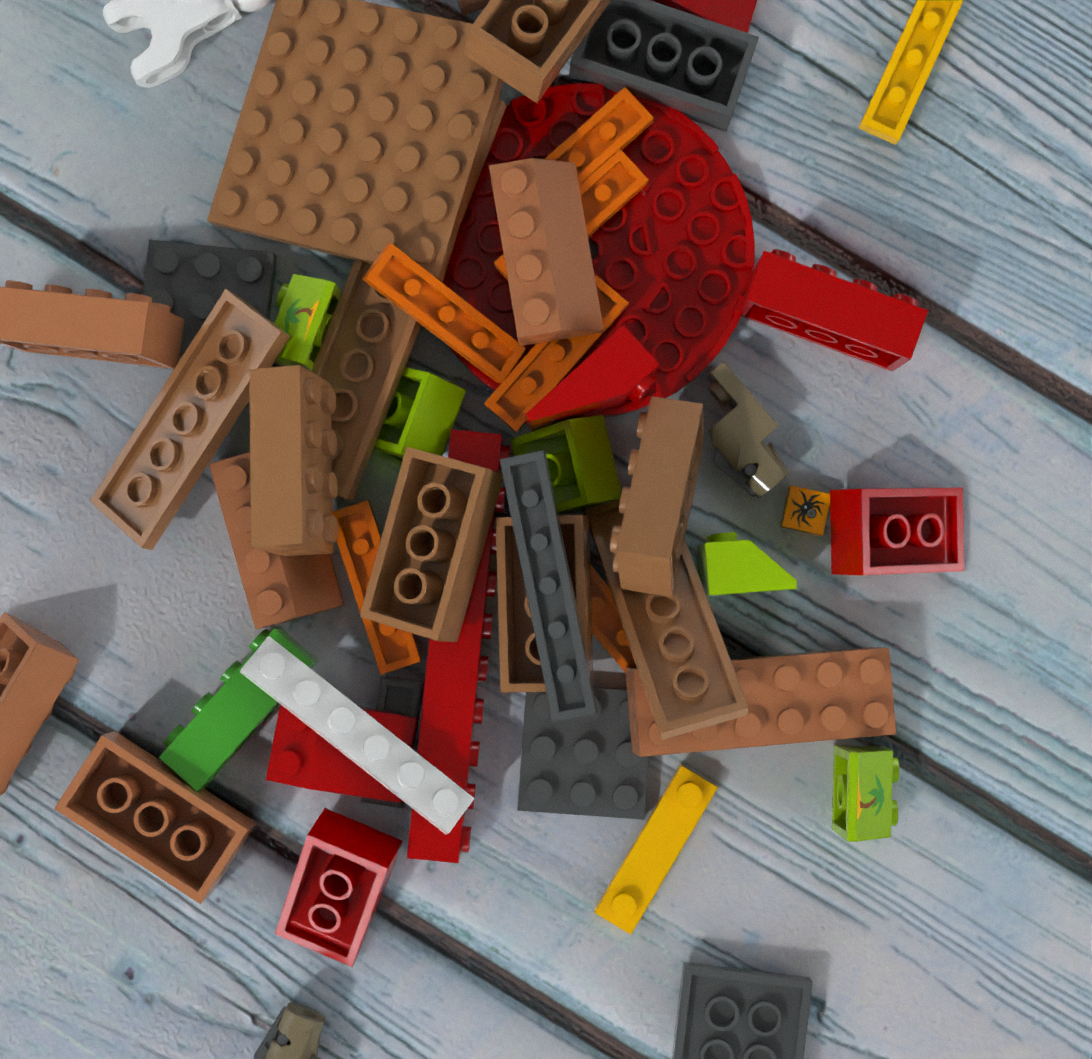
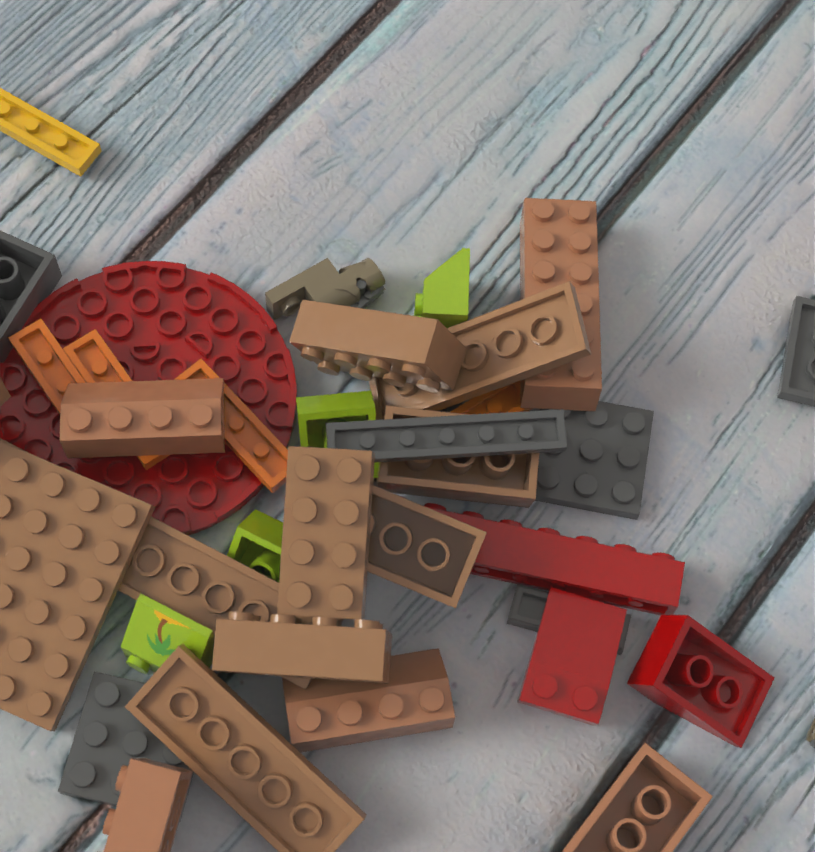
camera: 85 degrees left, 20 degrees down
(226, 719) = (527, 753): bright green brick -> none
(357, 735) = (561, 632): white plate -> none
(358, 546) = (423, 616): orange plate -> none
(411, 467) = (326, 532): none -> medium nougat brick
(443, 313) = (183, 507): orange plate -> none
(602, 381) = (262, 374): red slope -> none
(655, 849) = (679, 408): yellow plate -> none
(805, 510) = (400, 255): light orange tile -> none
(833, 310) = (236, 204): red brick -> none
(864, 792) = (641, 239): lime slope -> none
(896, 531) = (426, 190): red slope -> none

